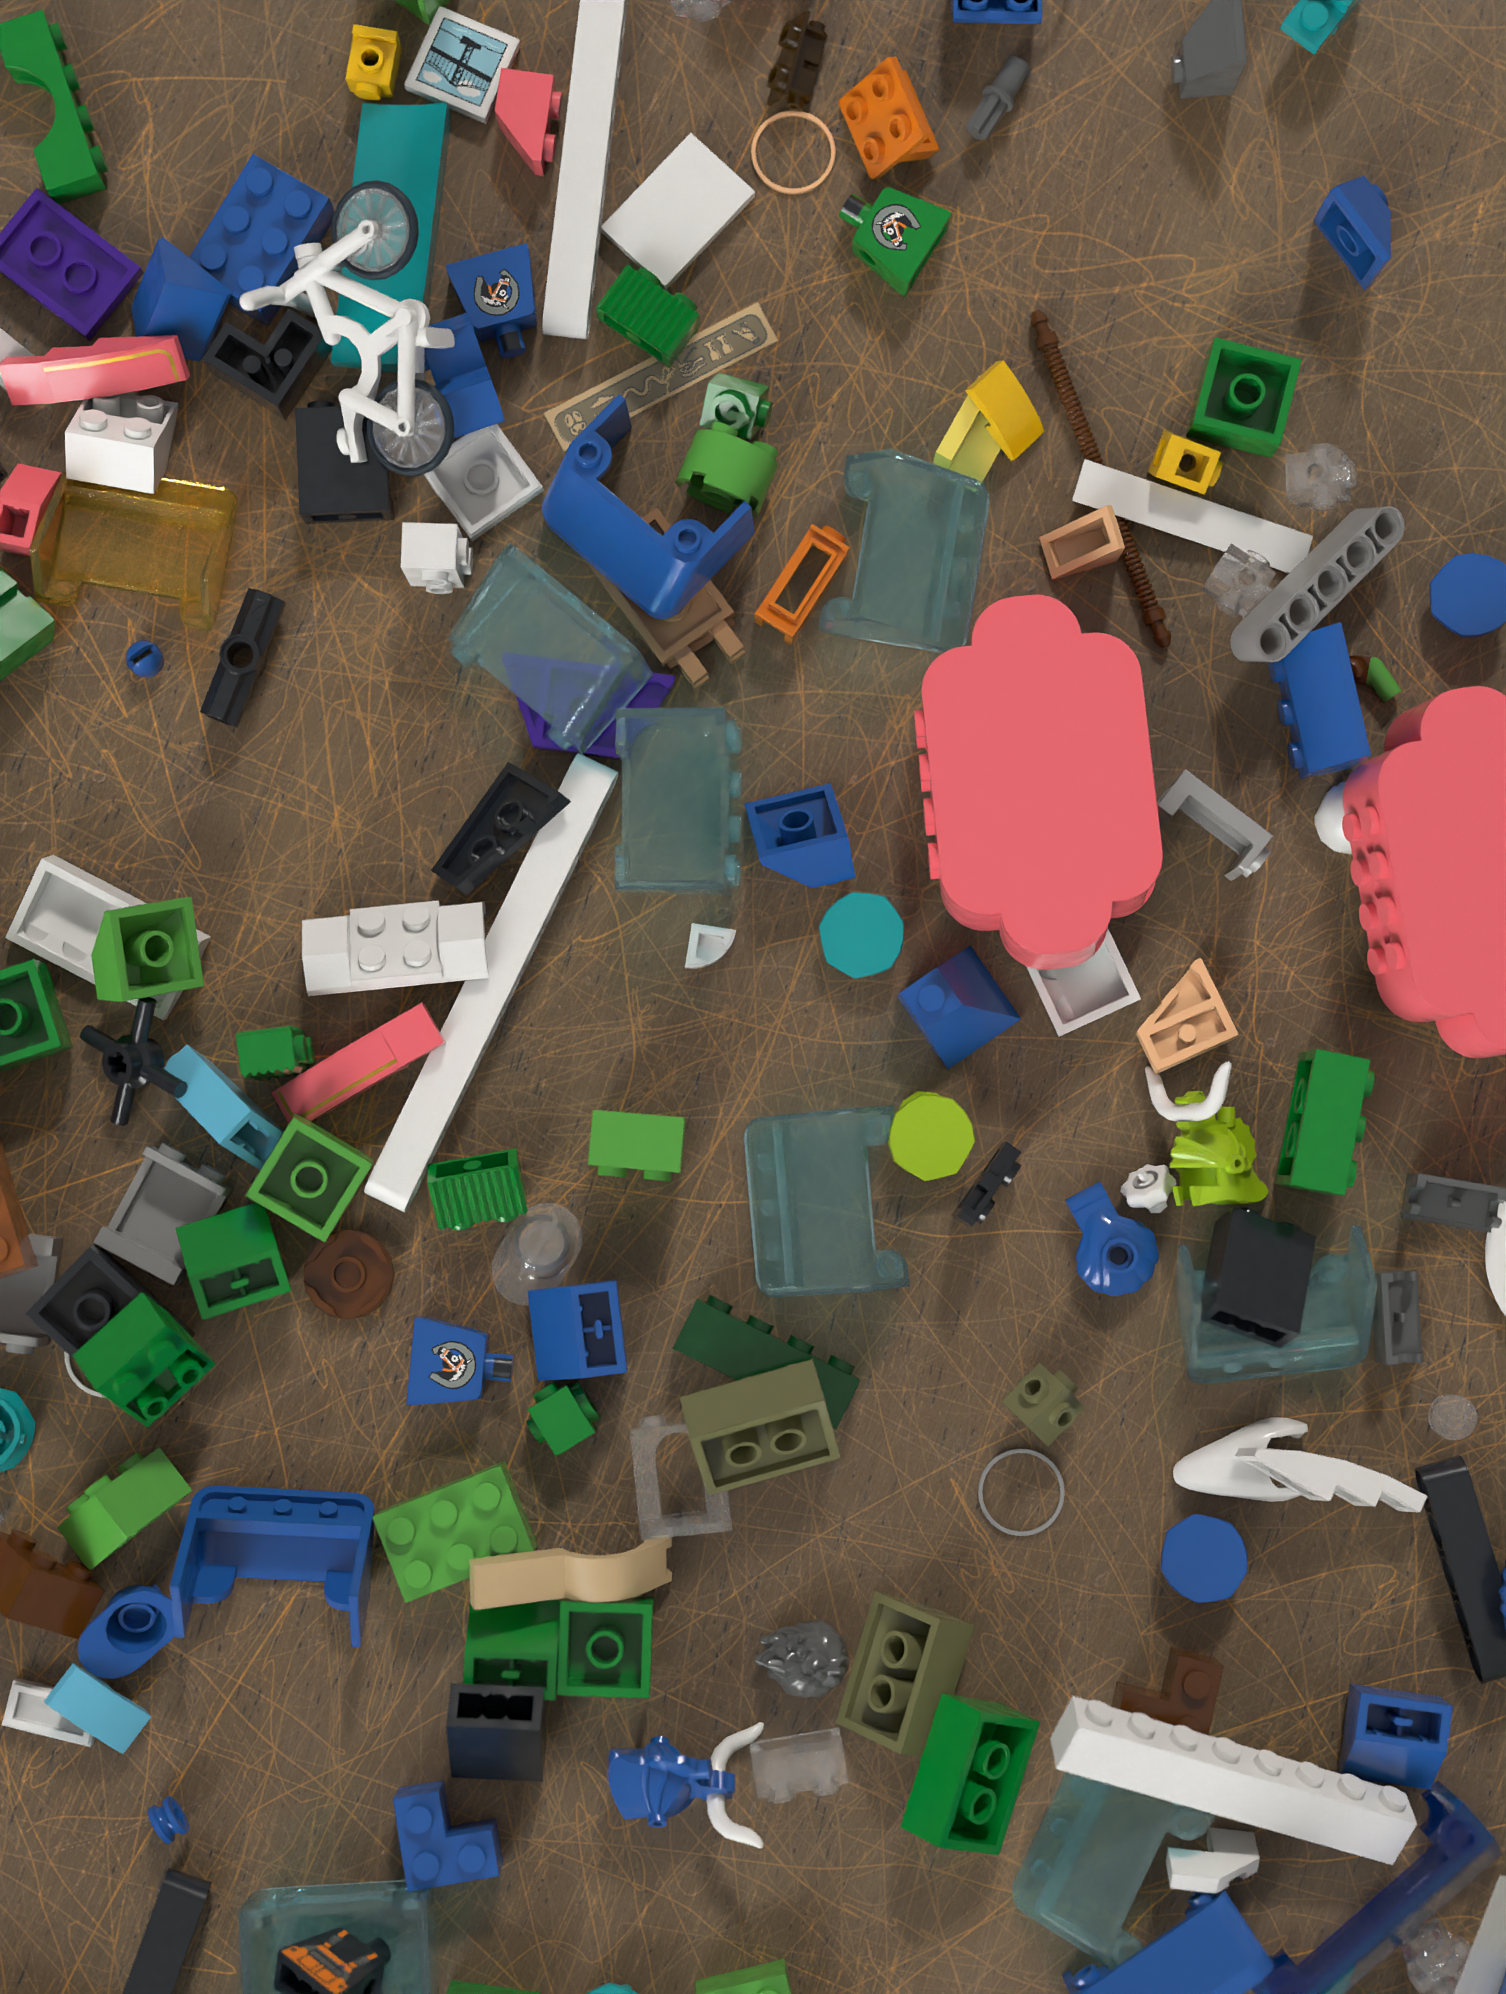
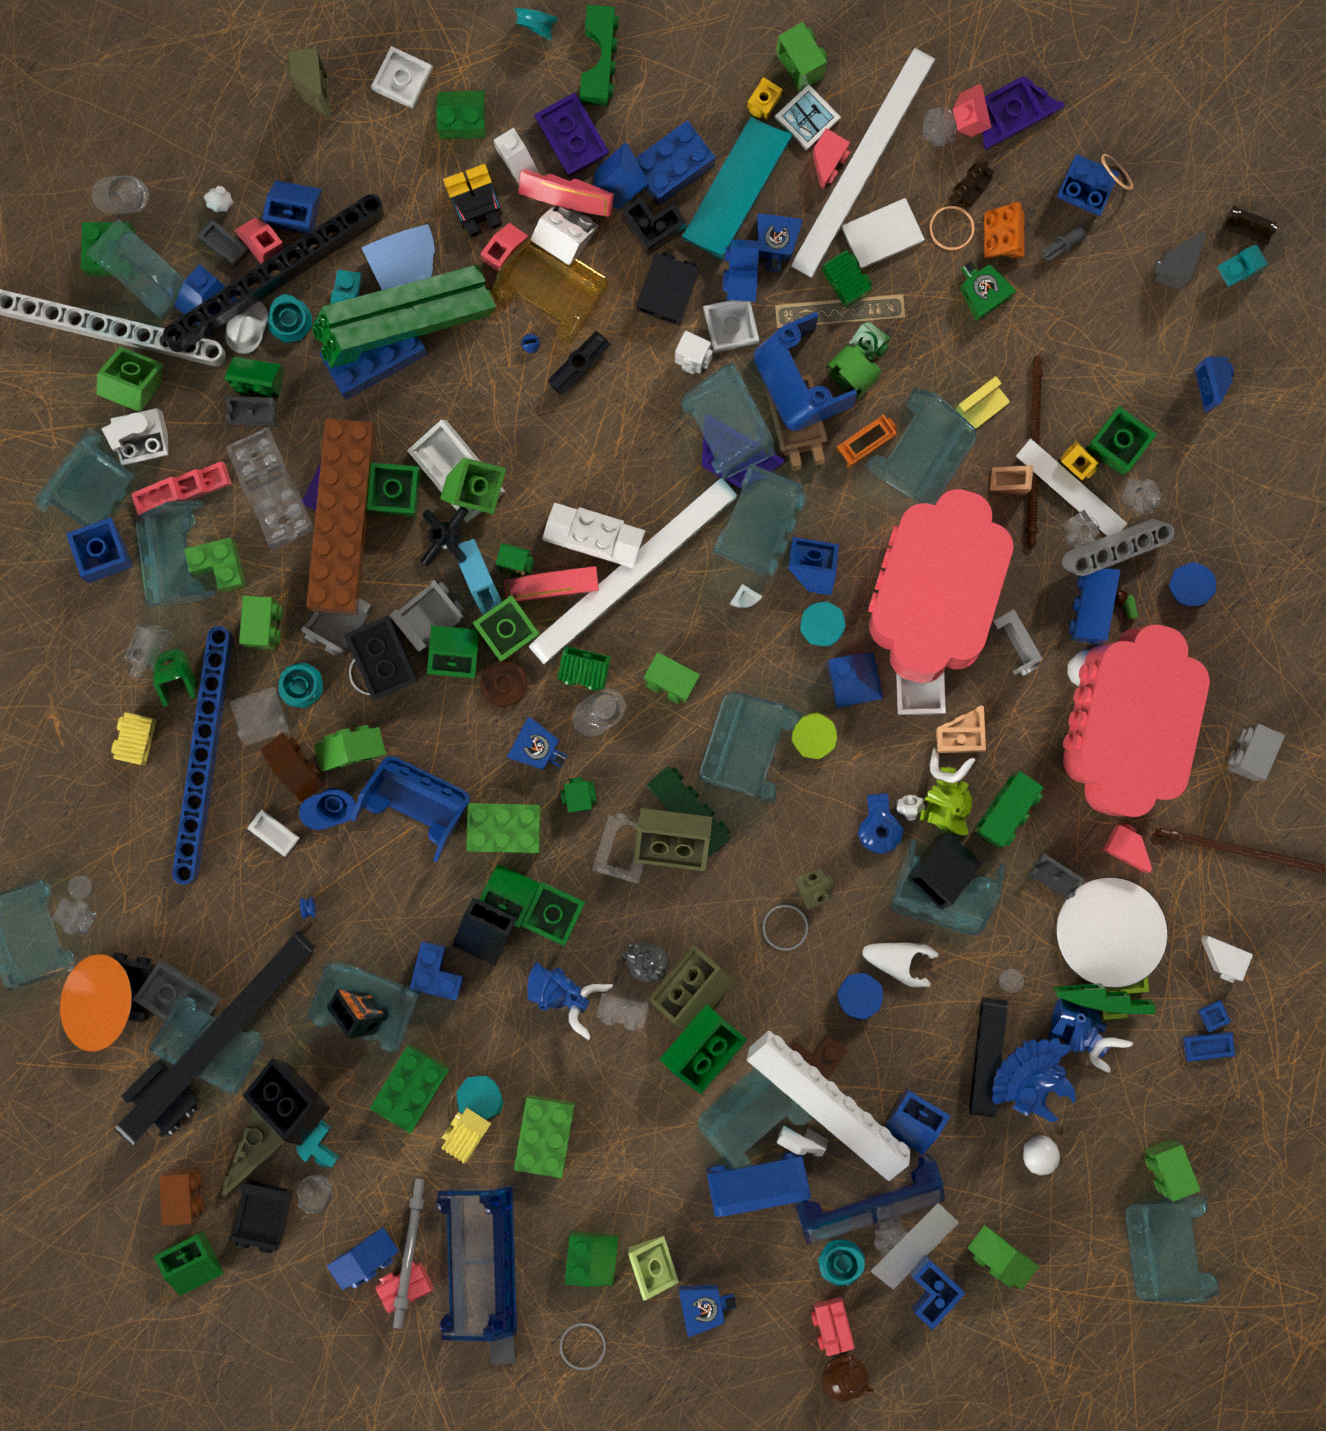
camera: 25 degrees right, 0 degrees up
(97, 1708) = (297, 839): medium azure slope -> none
(143, 1360) = (391, 680): green slope -> none
(374, 239) = (730, 188): piece -> none
(497, 827) = (669, 496): black wing -> none
(568, 1575) = (550, 871): tan piece -> none
(578, 1331) = (603, 756): blue slope -> none
(998, 1171) = (824, 777): black wing -> none
(1007, 408) = (1003, 398): yellow slope -> none
(1321, 1476) = (934, 979): white slope -> none
(1397, 1318) = (1004, 920): dark grey hinge -> none

